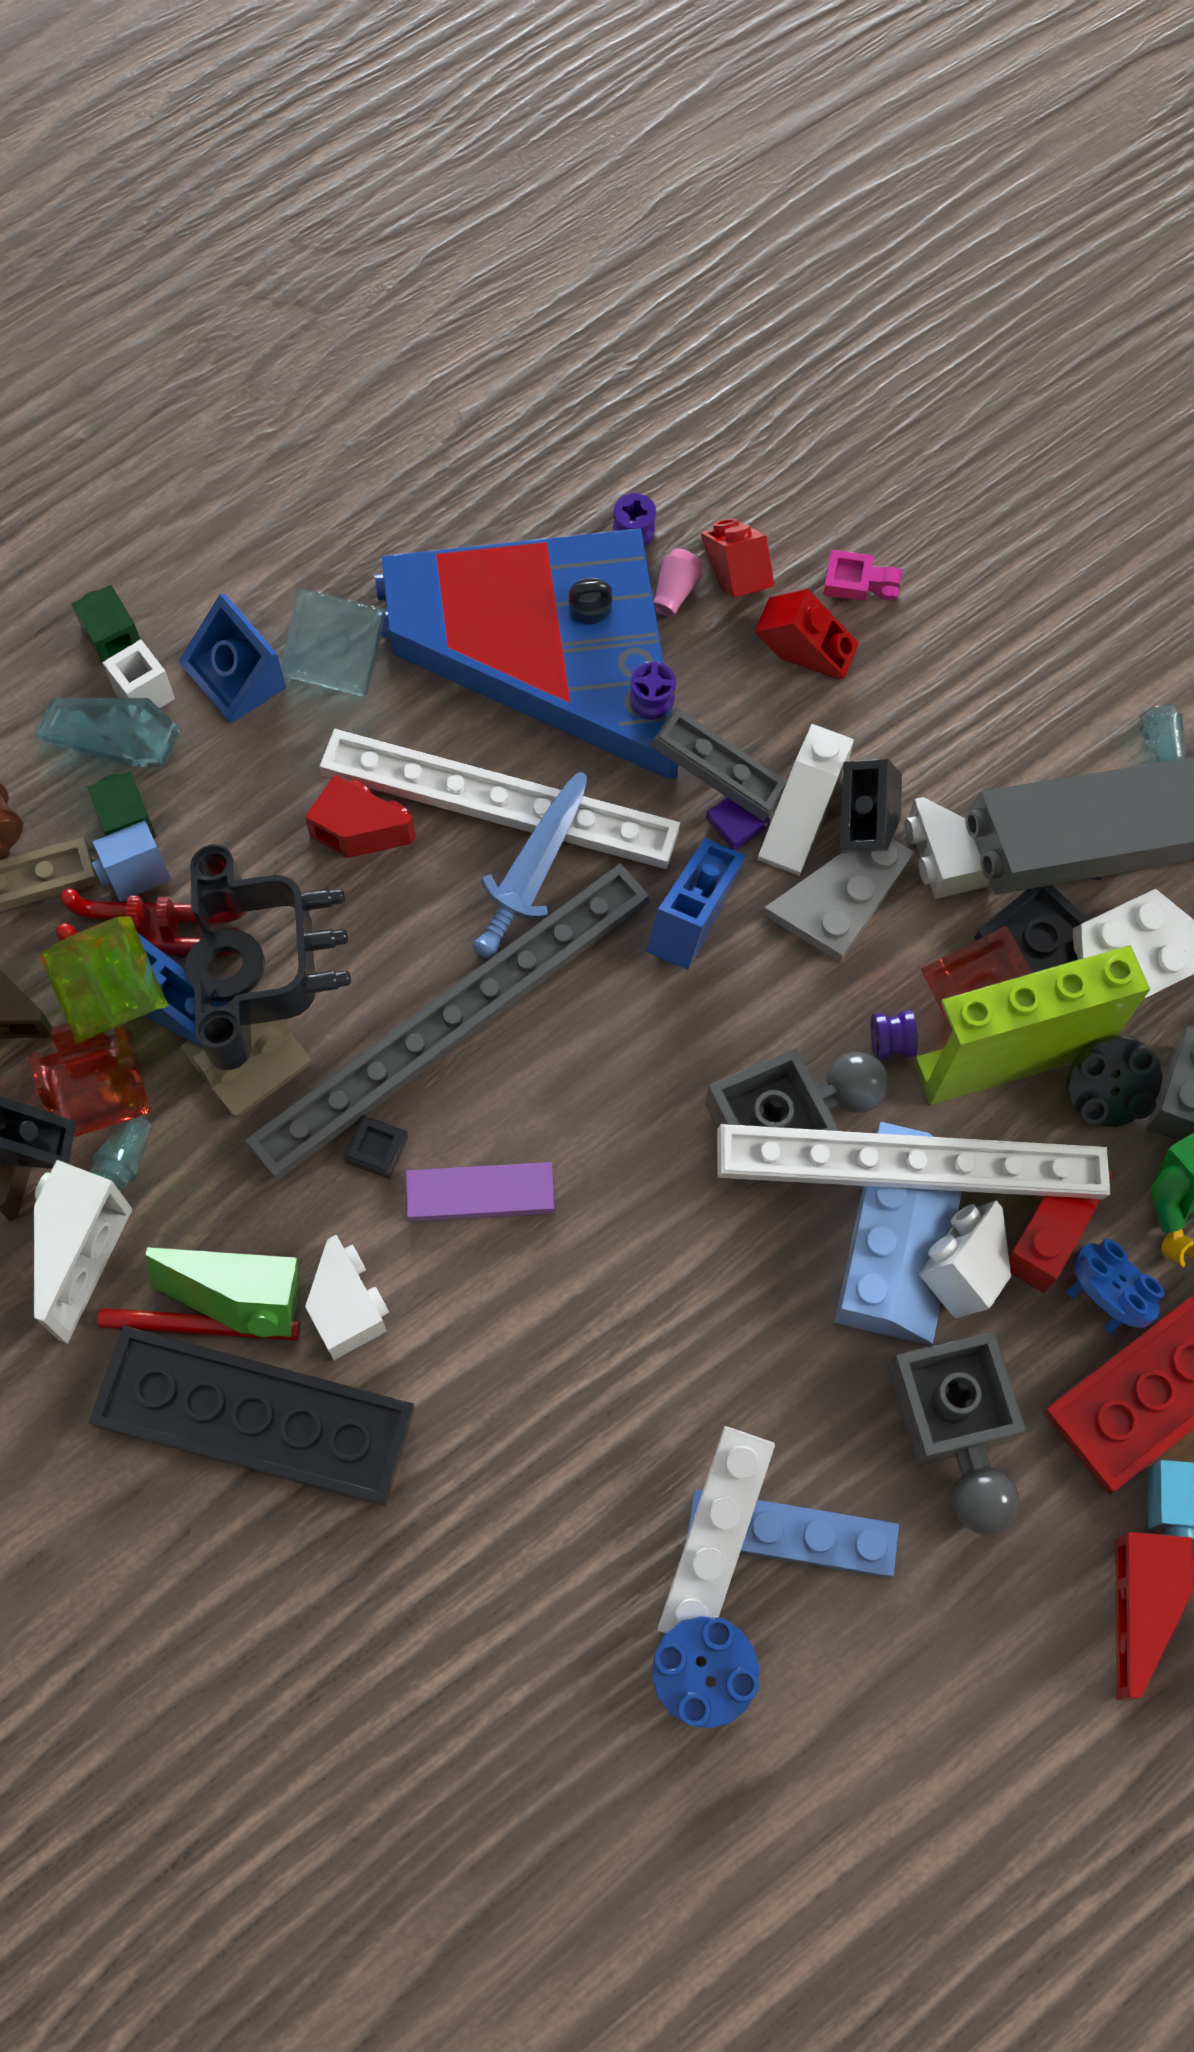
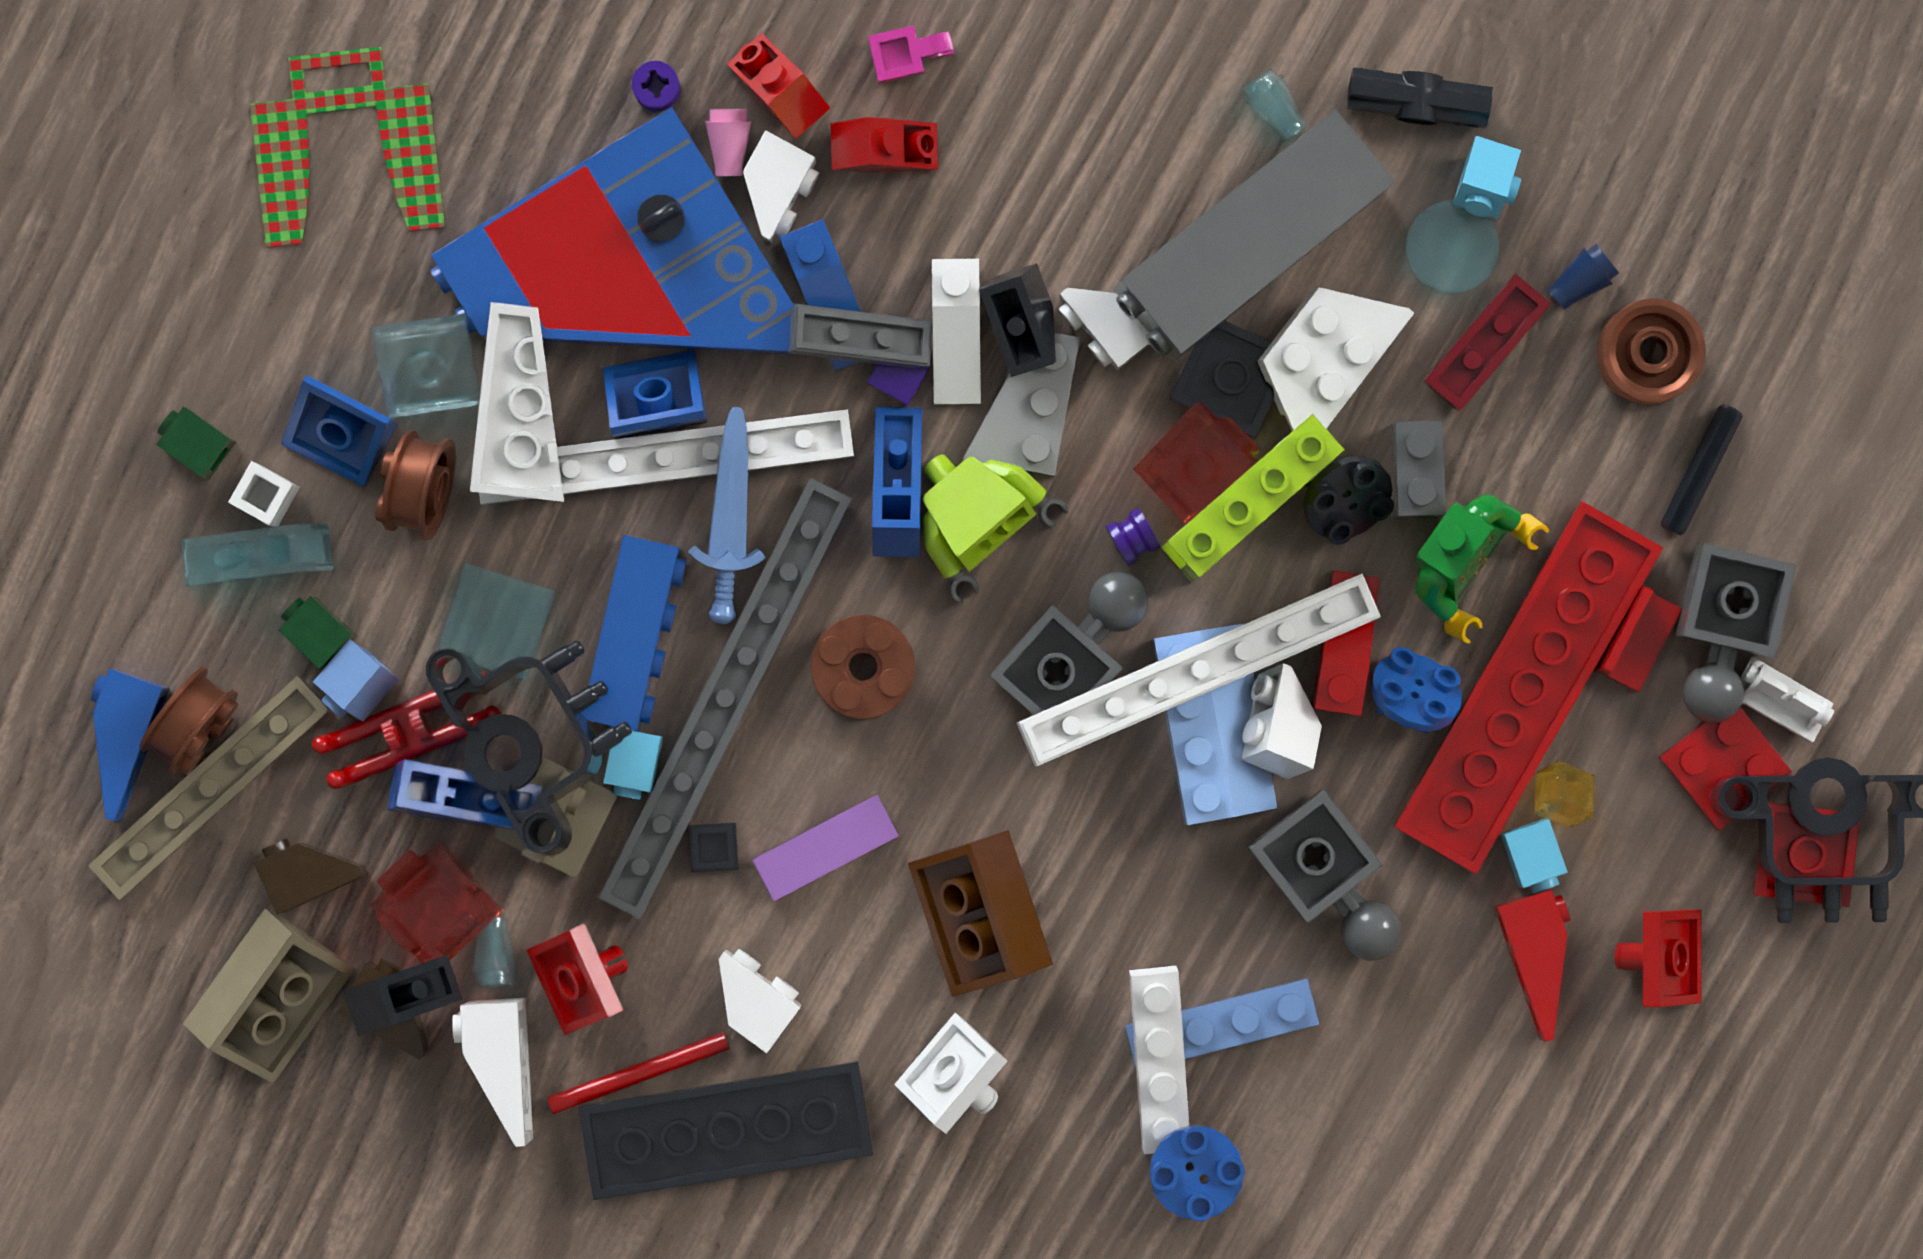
camera: 20 degrees left, 20 degrees up
(102, 978) = (412, 826): clear neon green slope -> none
(186, 1199) = (578, 978): none -> red tile
(235, 1289) = (664, 1033): slope -> none
(272, 721) = (416, 484): none -> copper wheel
(289, 852) = (496, 618): none -> clear light blue tile
(309, 448) = (405, 135): none -> piece
(340, 1033) = (634, 764): none -> medium azure brick
(356, 821) = (542, 544): red slope -> none
(385, 700) = (515, 420): none -> white wing
(399, 924) = (633, 630): none -> blue brick
(502, 1456) = (953, 1074): none -> white tile
(514, 748) = (654, 395): none -> blue slope
(598, 1014) = (869, 636): none -> copper wheel
(600, 1314) = (980, 914): none -> reddish brown slope
(652, 679) = (763, 288): dark purple wheel -> none
(703, 624) = (774, 181): none -> white slope
(708, 702) = (820, 272): none -> blue slope
(758, 950) = (976, 512): none -> lime torso

